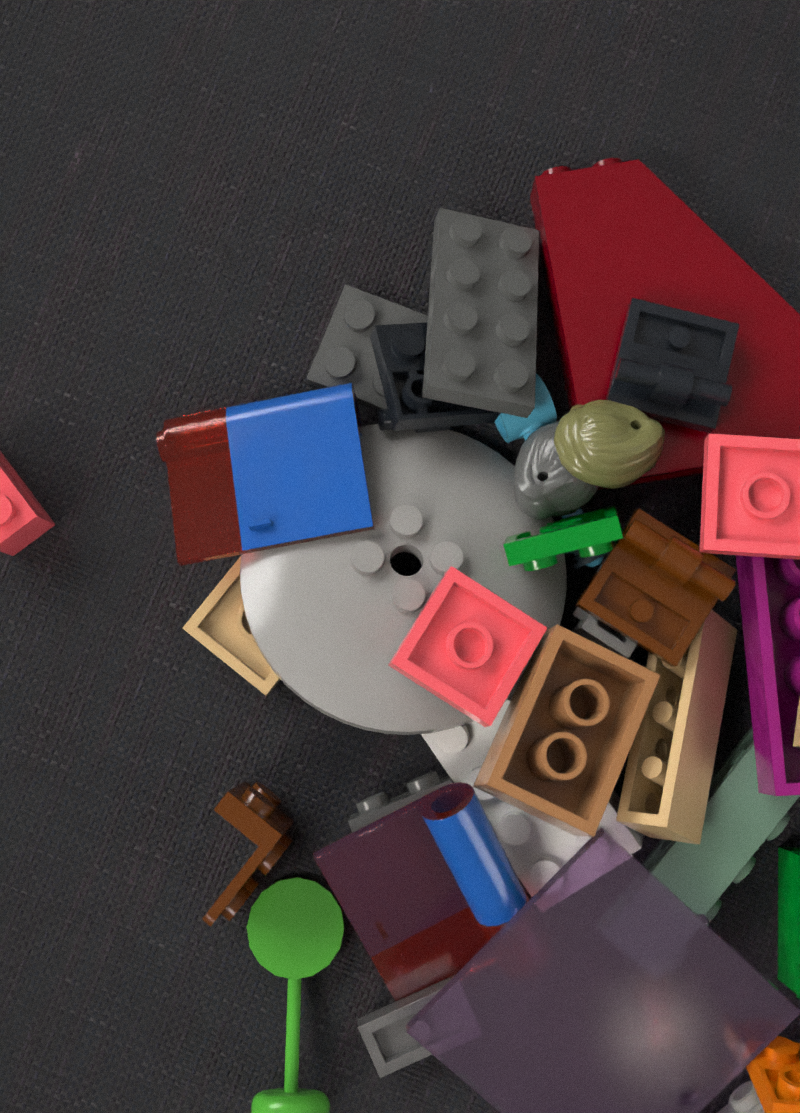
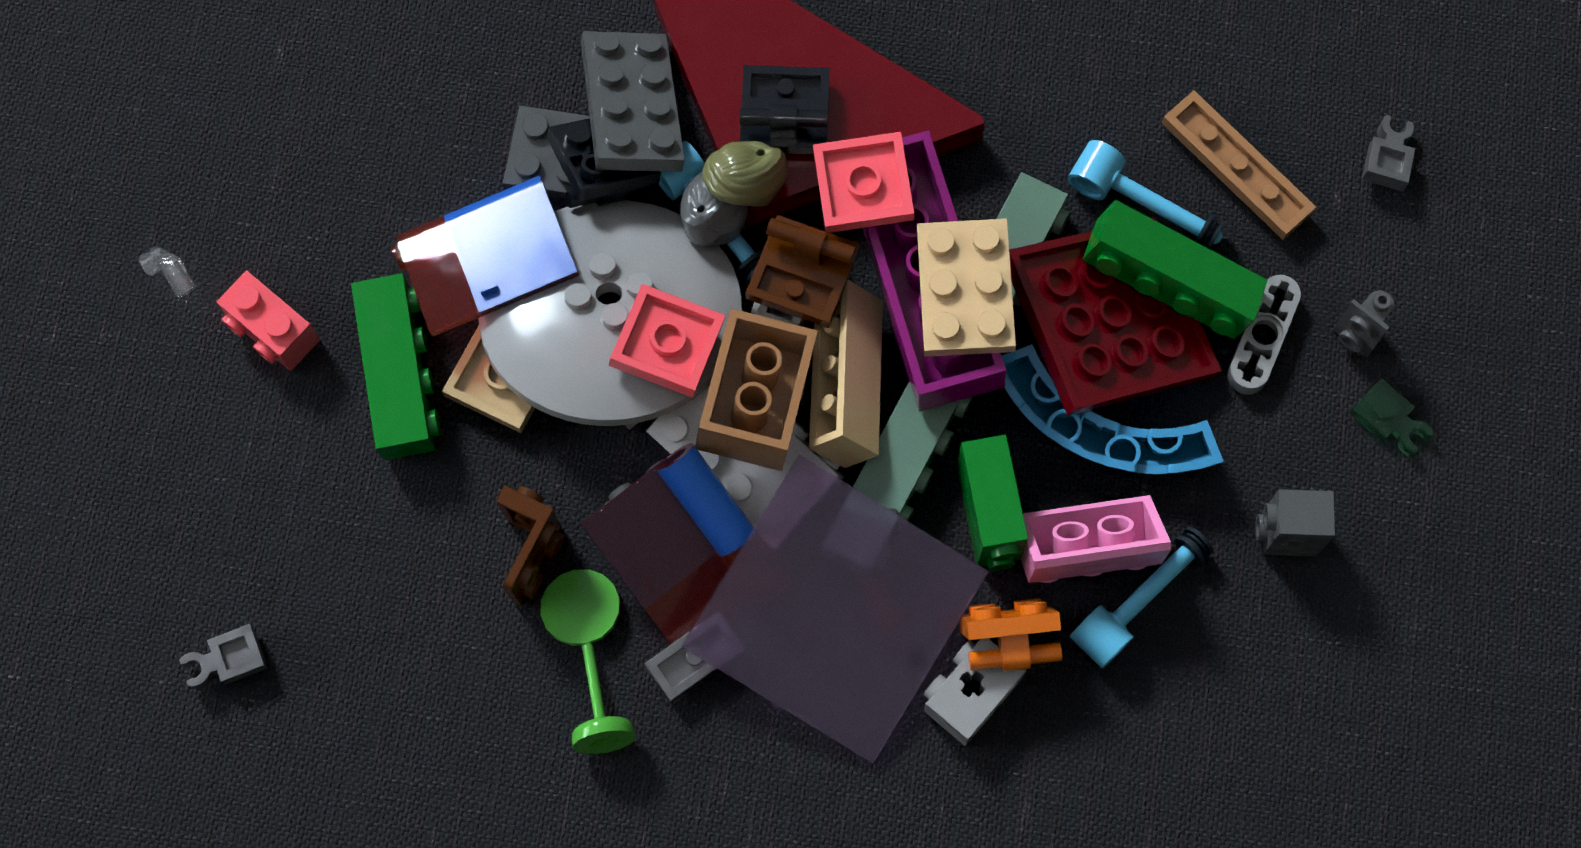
camera: 15 degrees left, 10 degrees down
(130, 586) = (394, 367): none -> green brick
(587, 532) = (742, 242): green plate -> none

